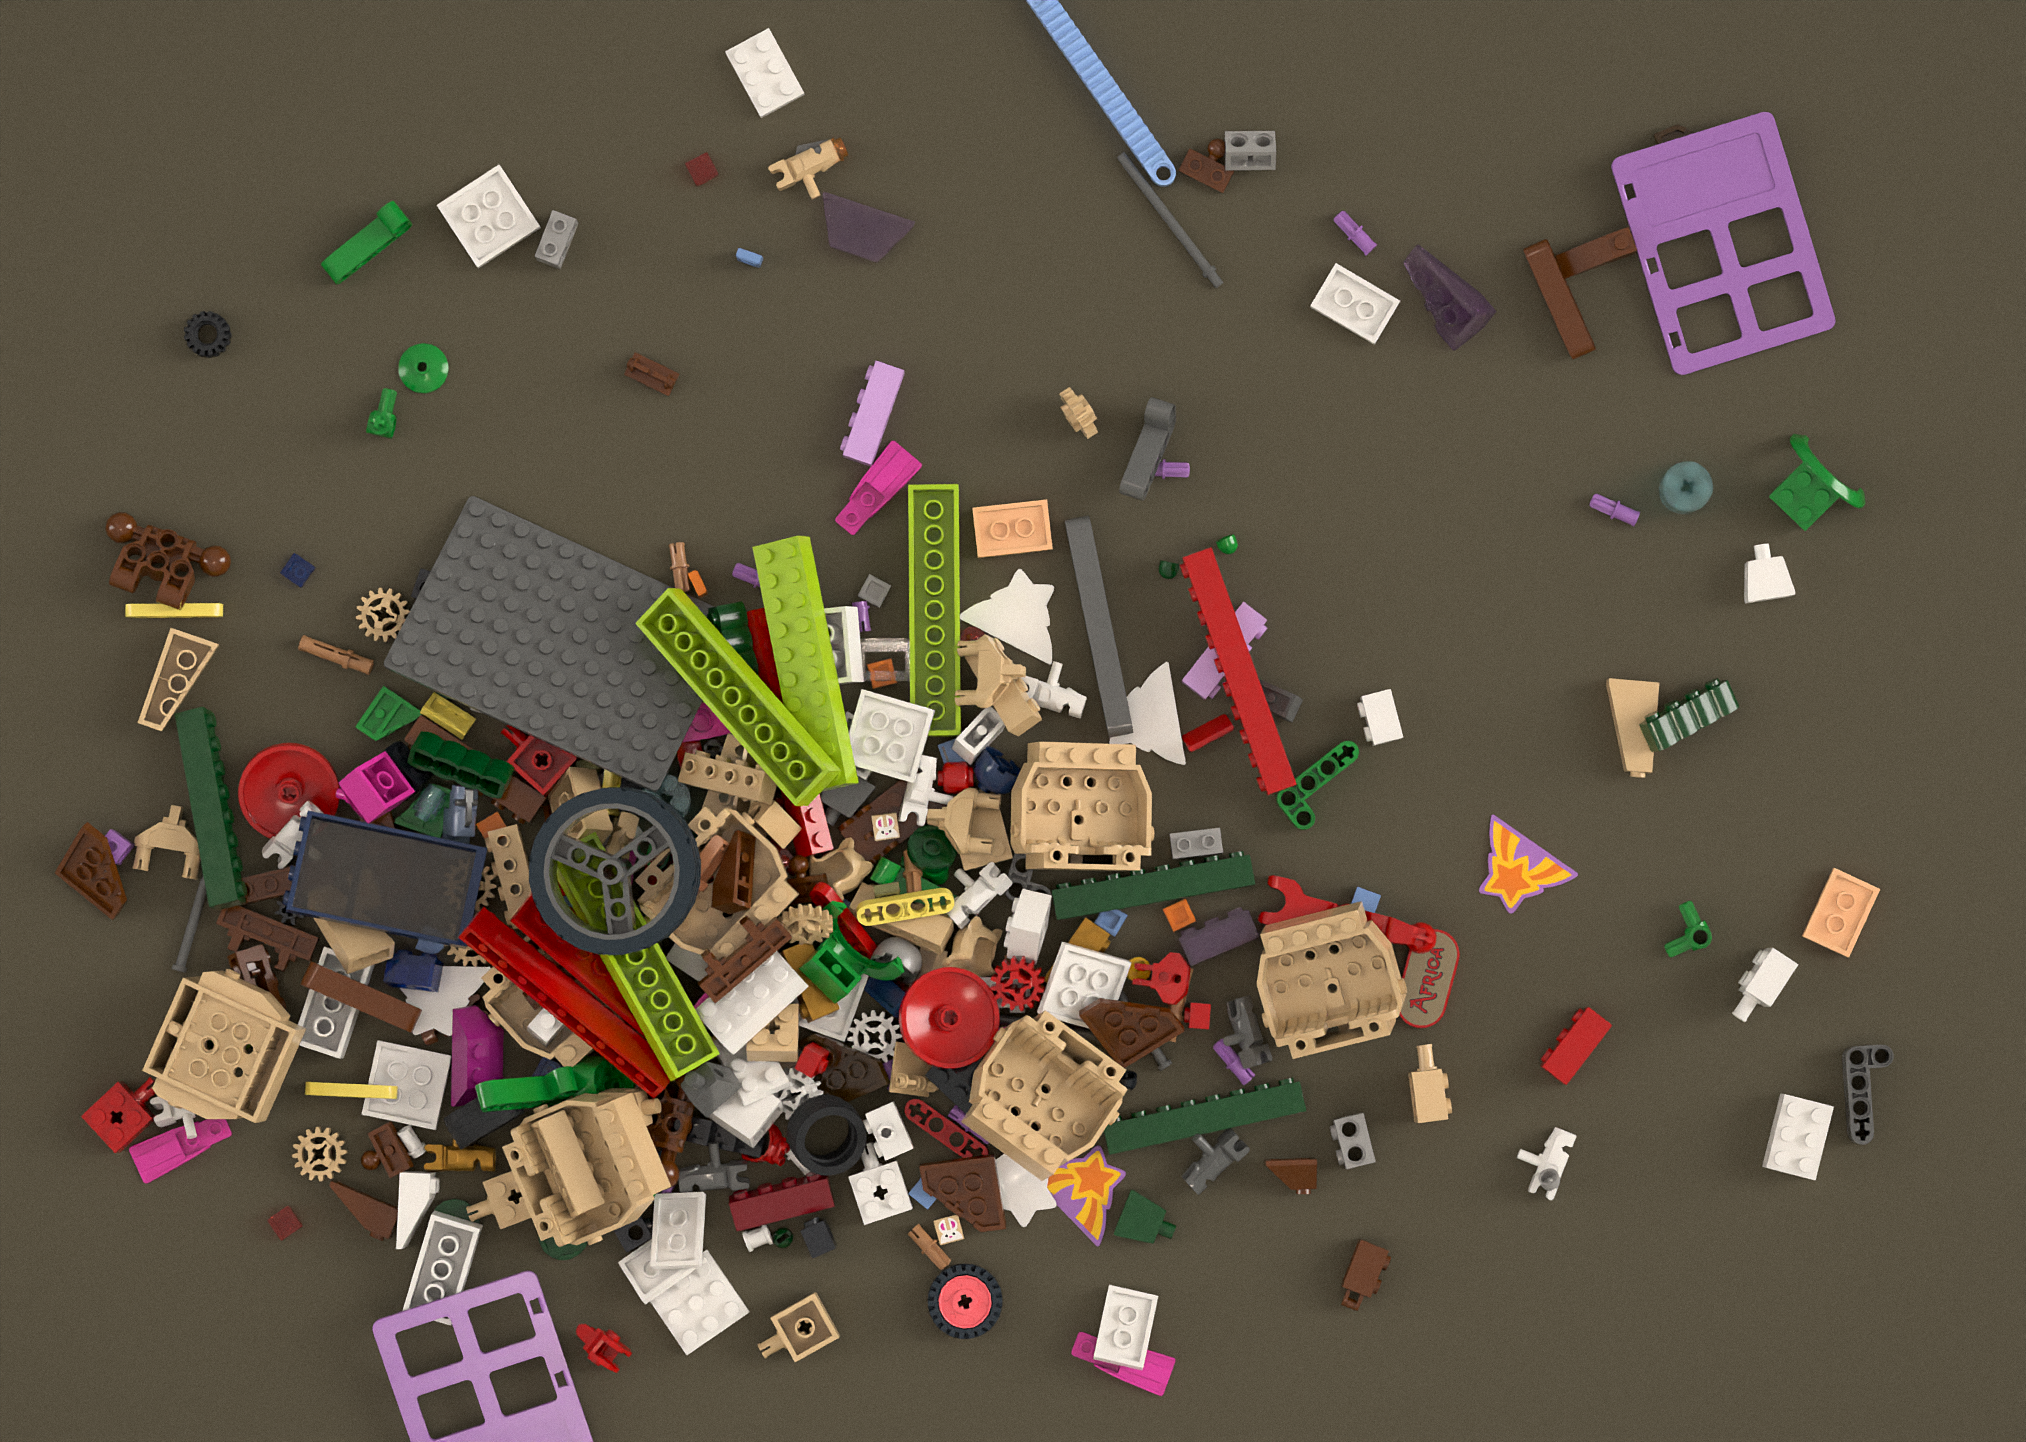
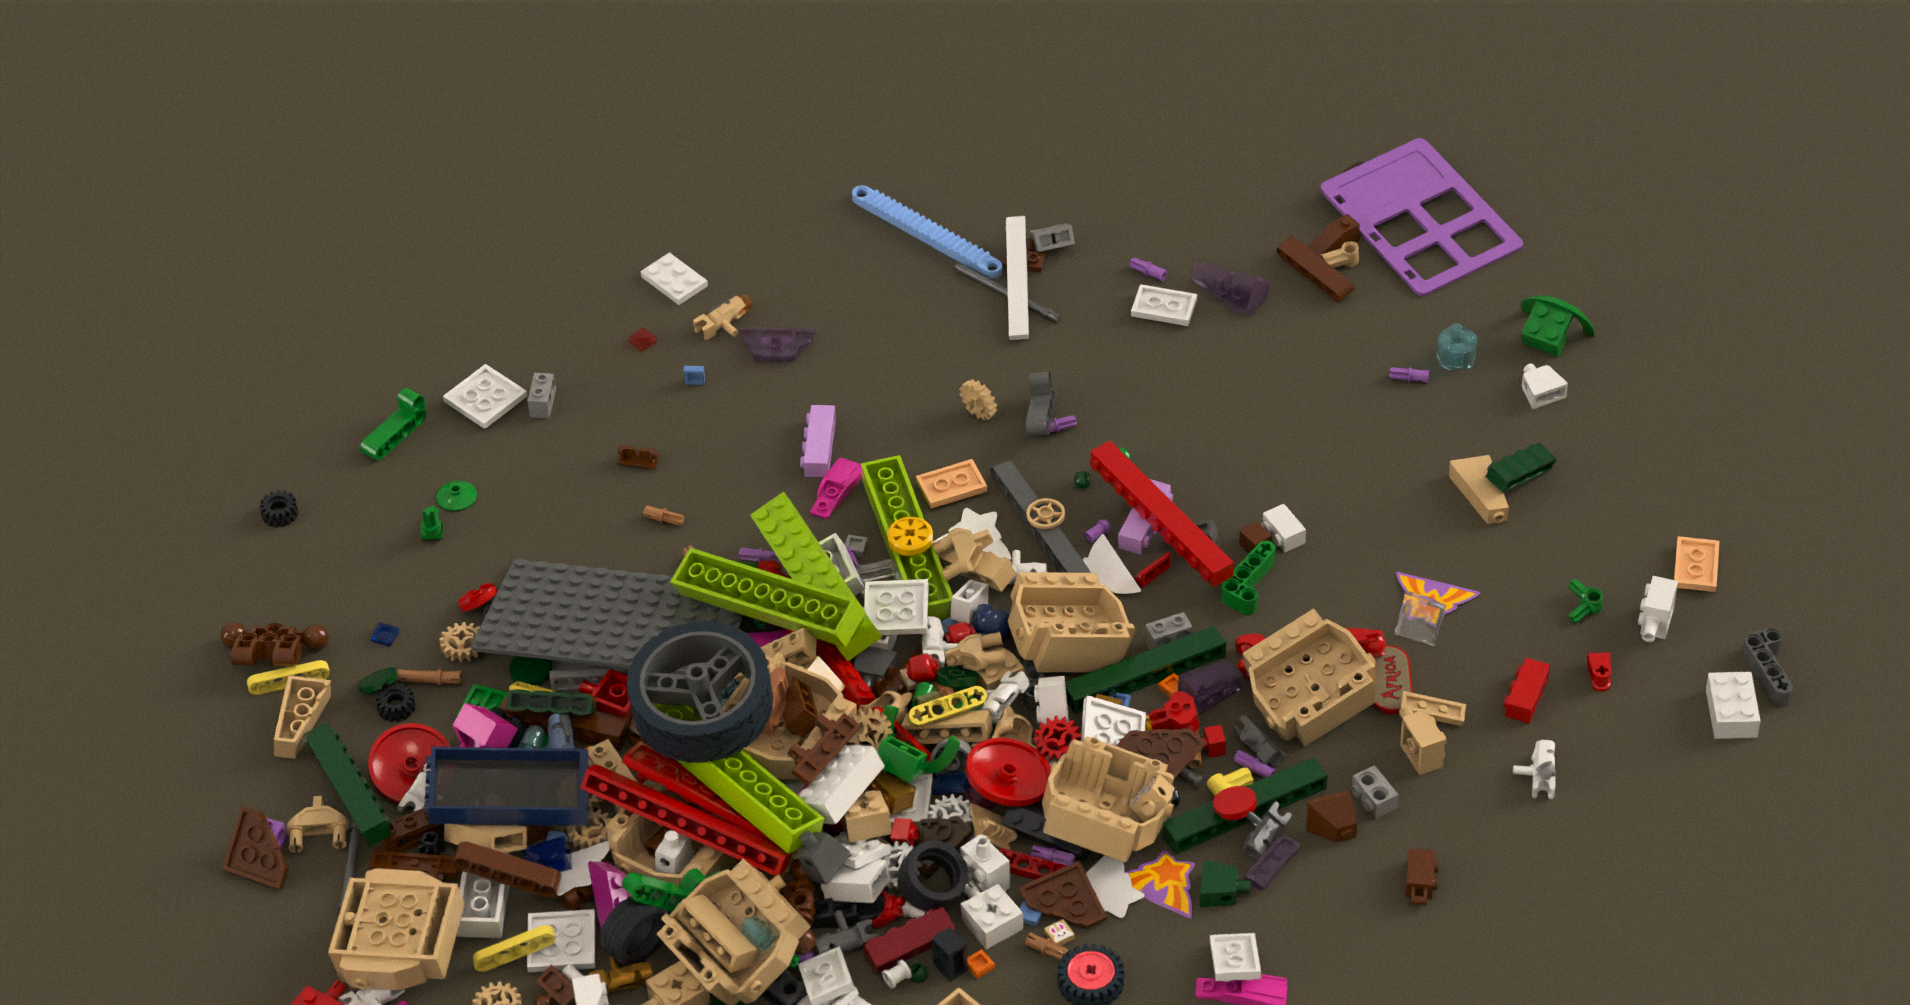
camera: 15 degrees left, 40 degrees down
(274, 649) = (376, 680): none -> dark green tile
(302, 692) = (395, 693): none -> black tyre
(413, 554) = (474, 599): none -> red tile
(609, 1181) = (757, 932): none -> clear light blue brick
(660, 479) = (663, 515): none -> medium nougat axle
(851, 1244) = (980, 964): none -> orange tile
(894, 833) = (922, 668): none -> red head
(929, 640) = (901, 534): none -> yellow wheel
(1093, 1112) = (1150, 800): none -> tan torso
(1105, 625) = (1045, 513): none -> tan wheel
(1163, 654) = (1096, 531): none -> medium lavender pin
(1186, 208) = (1017, 278): none -> white tile
(1188, 1130) = (1235, 802): none -> red tile
(1193, 1081) = (1237, 778): none -> light yellow piece
(1209, 1203) = (1272, 862): none -> clear purple plate
(1341, 724) = (1252, 535): none -> reddish brown brick
(1458, 1042) = (1440, 709): none -> tan plate
(1492, 905) = (1420, 618): none -> clear slope
(1595, 286) = (1346, 256): none -> tan piece
(1670, 1033) = (1600, 670): none -> red piece

